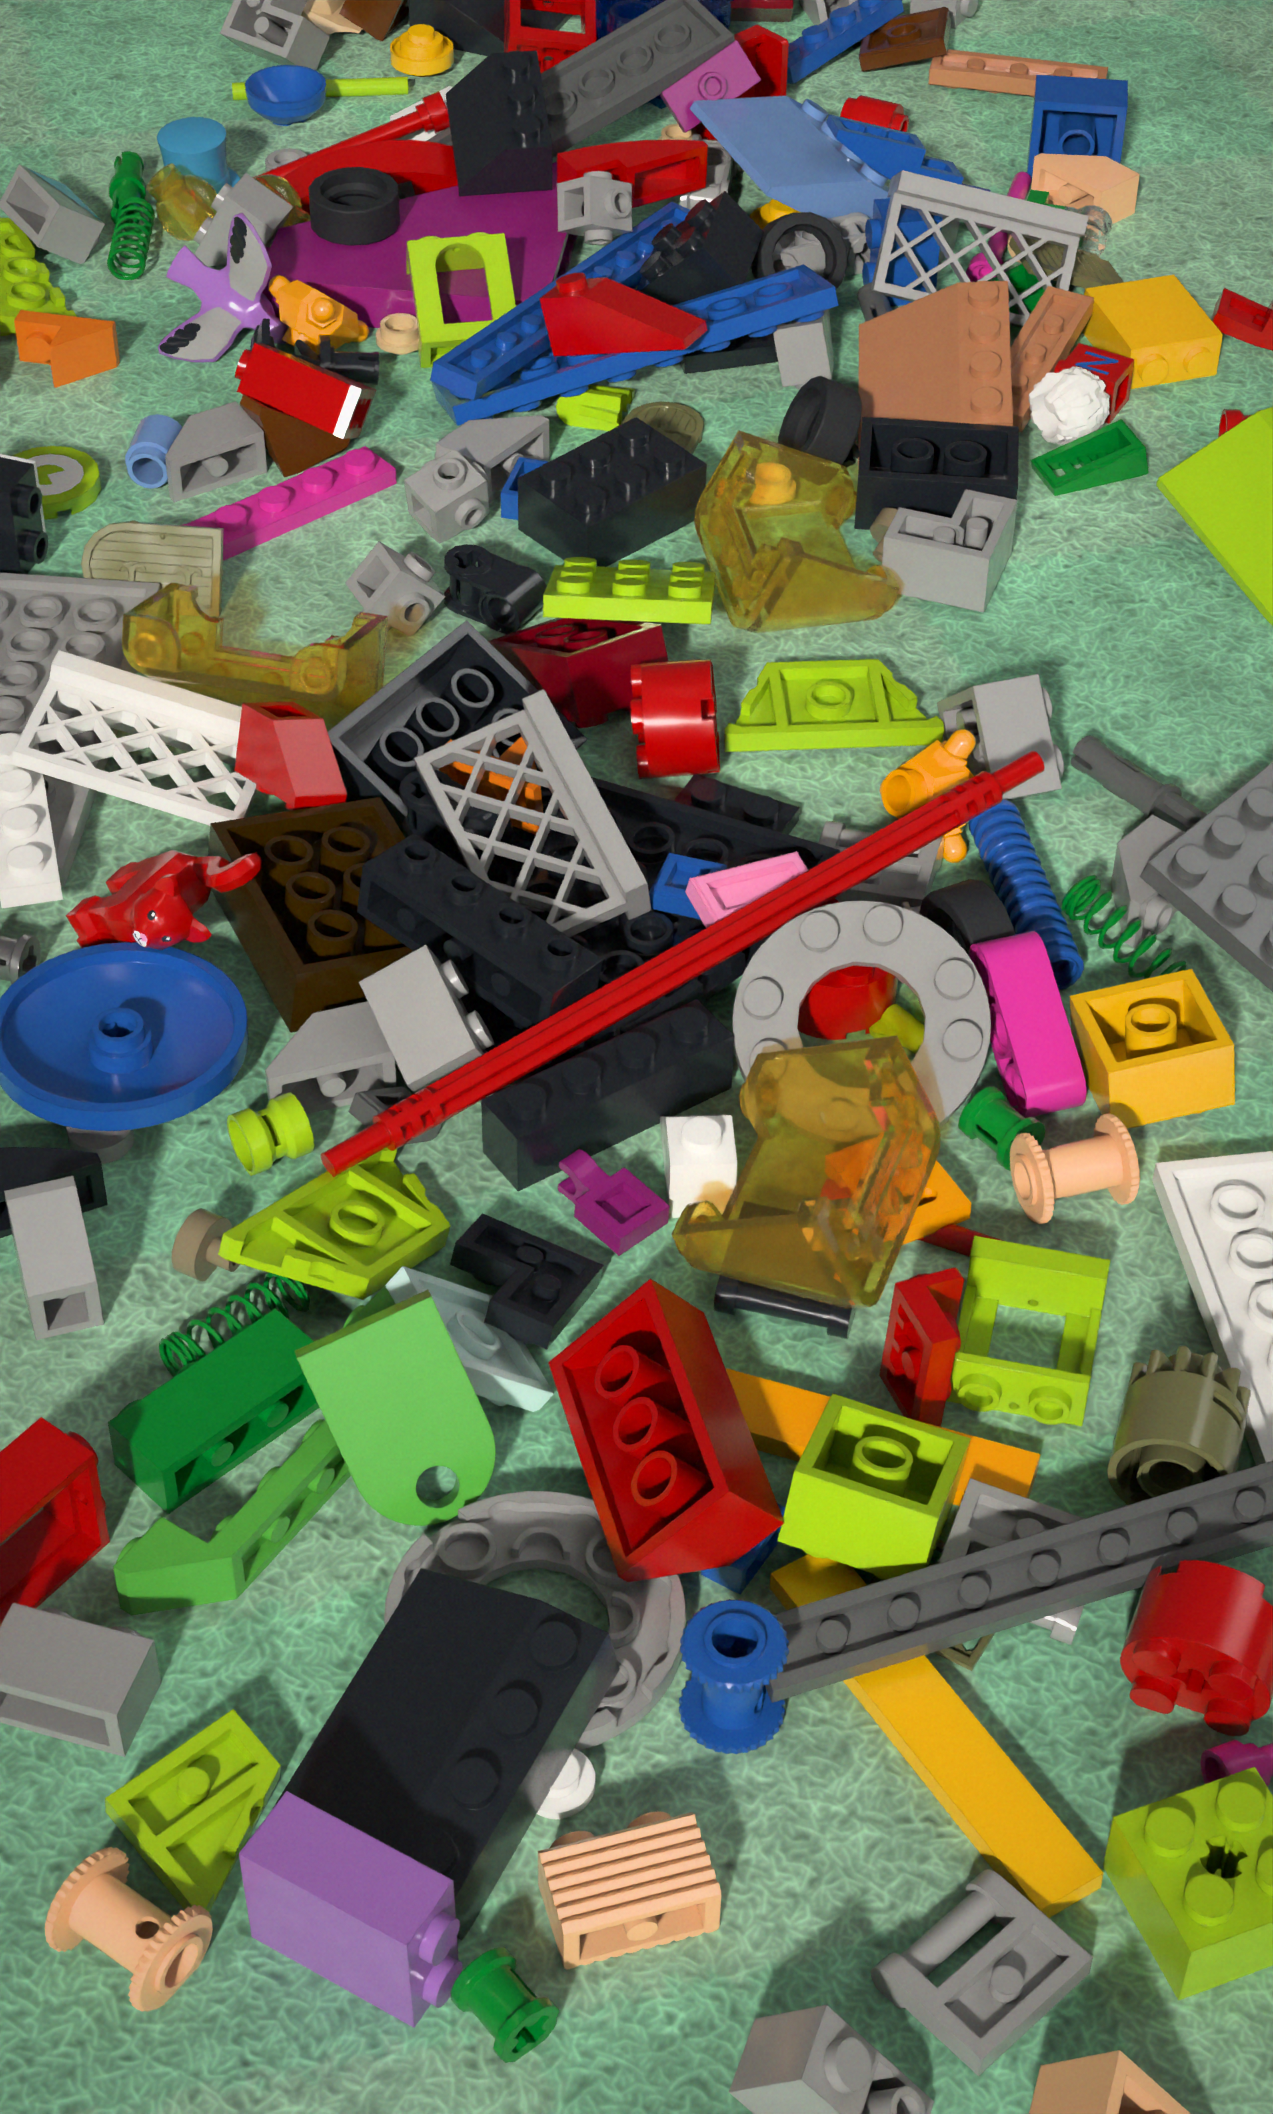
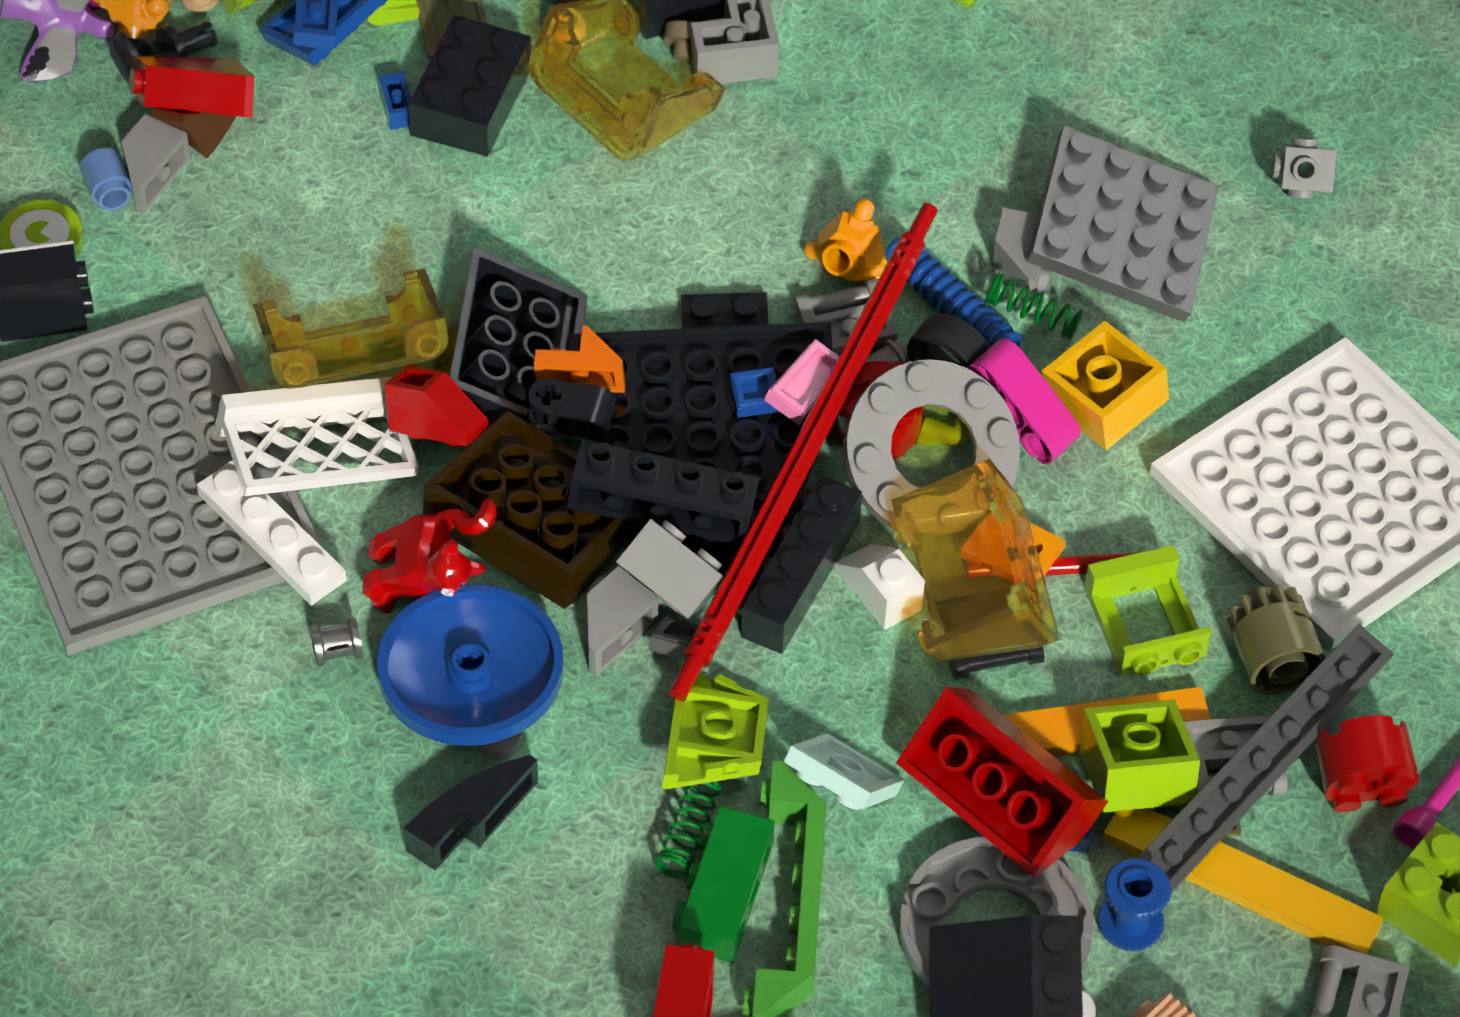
camera: 30 degrees left, 10 degrees up
(54, 1257) = (559, 838): light grey slope -> none
(161, 556) = (210, 271): window -> none
(199, 1243) = (634, 783): dark tan tile -> none
(270, 1133) = (610, 691): lime wheel -> none
(299, 500) = (218, 209): dark pink plate -> none
(396, 588) = (382, 232): light grey brick -> none
(400, 1407) = (850, 832): bright green tile -> none
(448, 496) = (356, 133): light grey brick -> none
(495, 591) = (445, 201): black piece -> none
(498, 445) = (352, 83): light grey slope -> none
(537, 1279) = (851, 707): black plate -> none
(571, 791) = (657, 361): light grey fence -> none
(584, 662) = (550, 234): dark red slope -> none
(612, 1207) = (855, 640): magenta plate -> none
(630, 592) = (547, 167): lime plate -> none
(675, 718) = (653, 260): red brick -> none
(829, 708) = (733, 203): lime wing -> none
(922, 1343) = (1107, 653): red bracket -> none
(997, 1123) = (1045, 478): green bush -> none
(1007, 723) = (874, 173): light grey brick -> none
(1074, 1168) = (1124, 476): light nougat hose -> none
(1133, 784) = (972, 184): dark grey axle -> none

